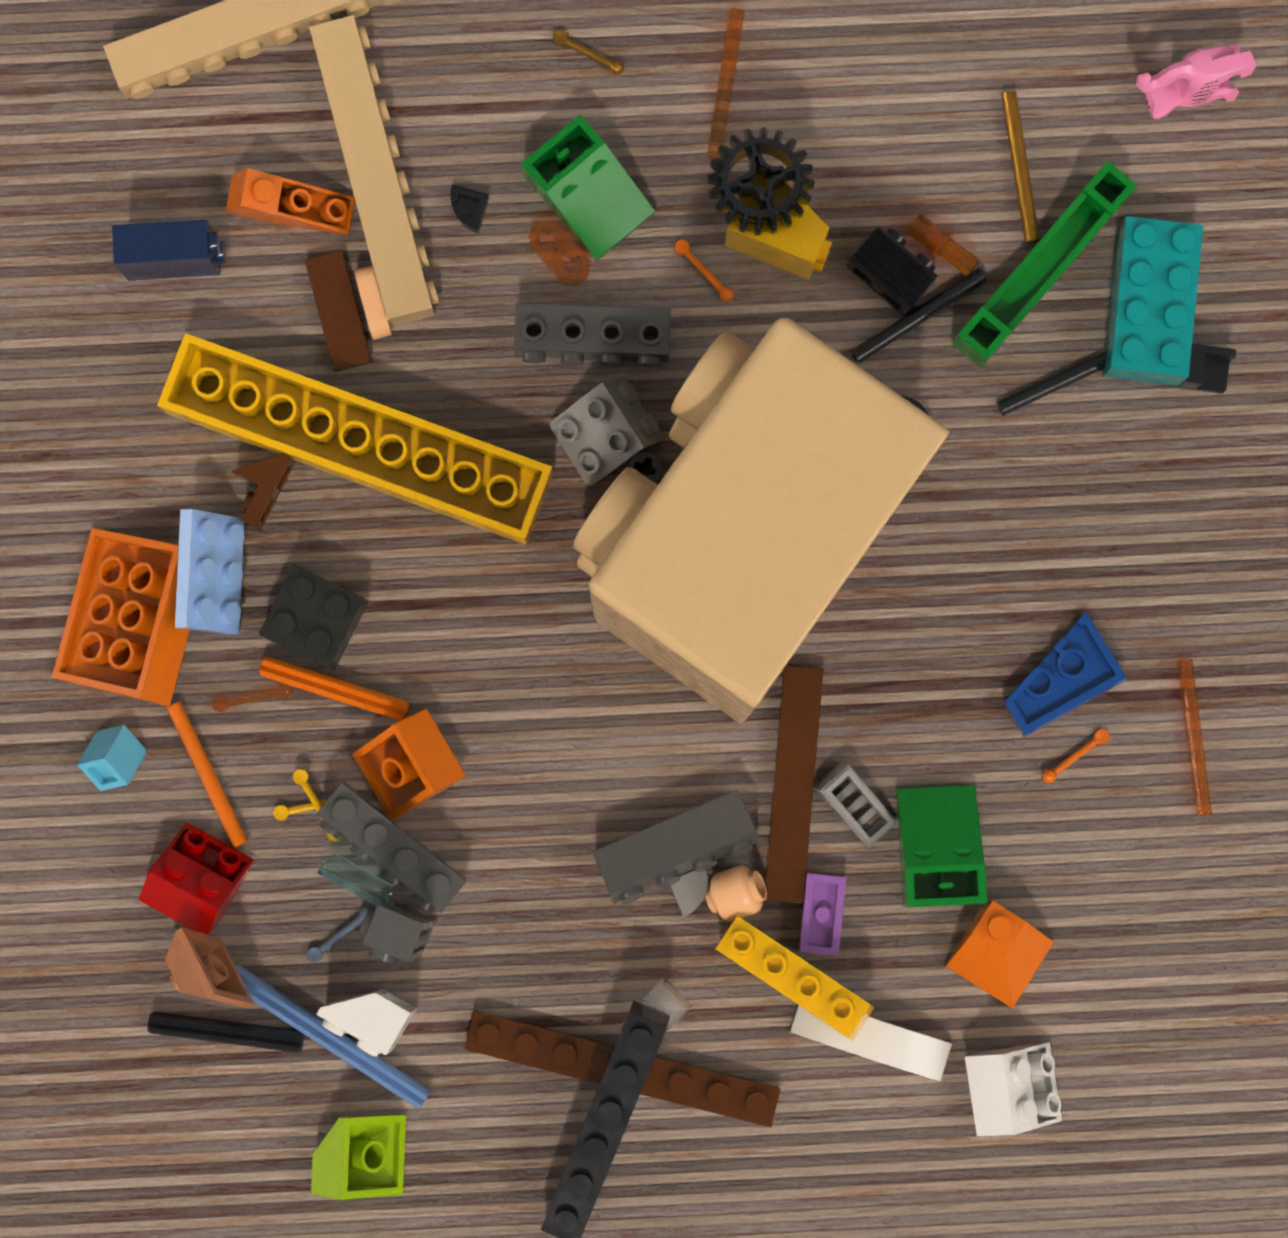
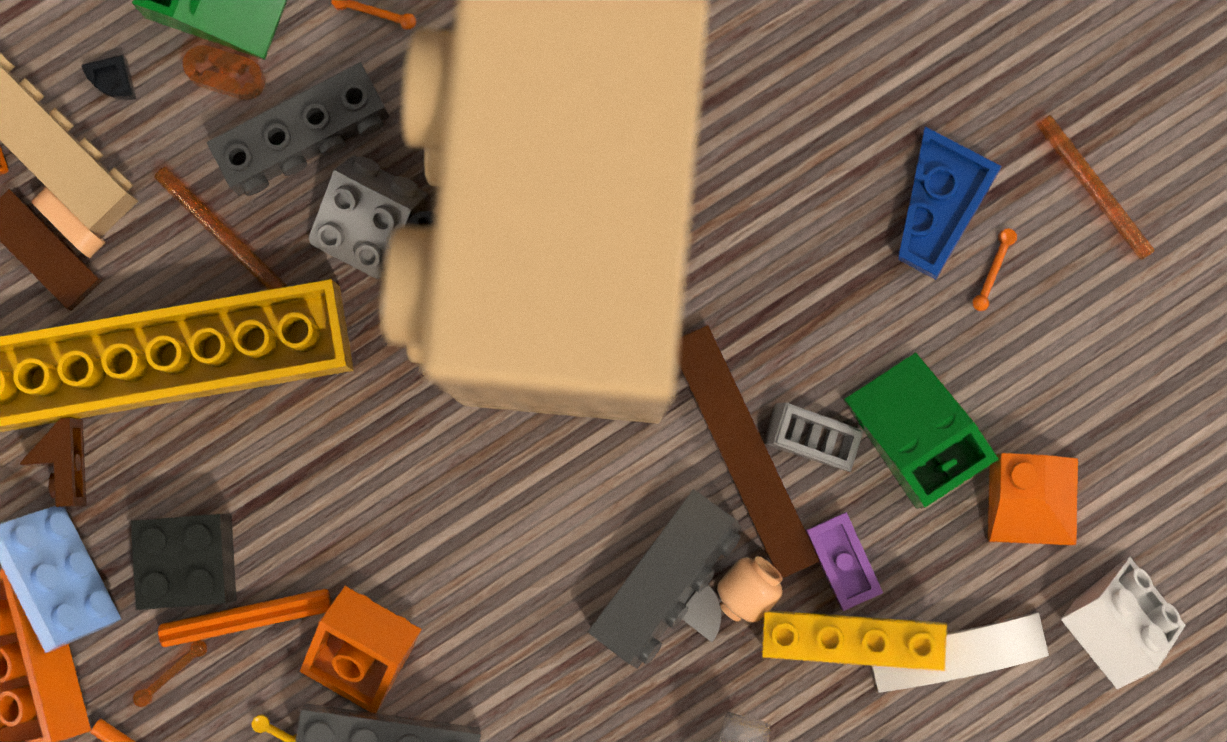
camera: 30 degrees left, 0 degrees up
(485, 375) = (218, 229): none -> clear orange piece

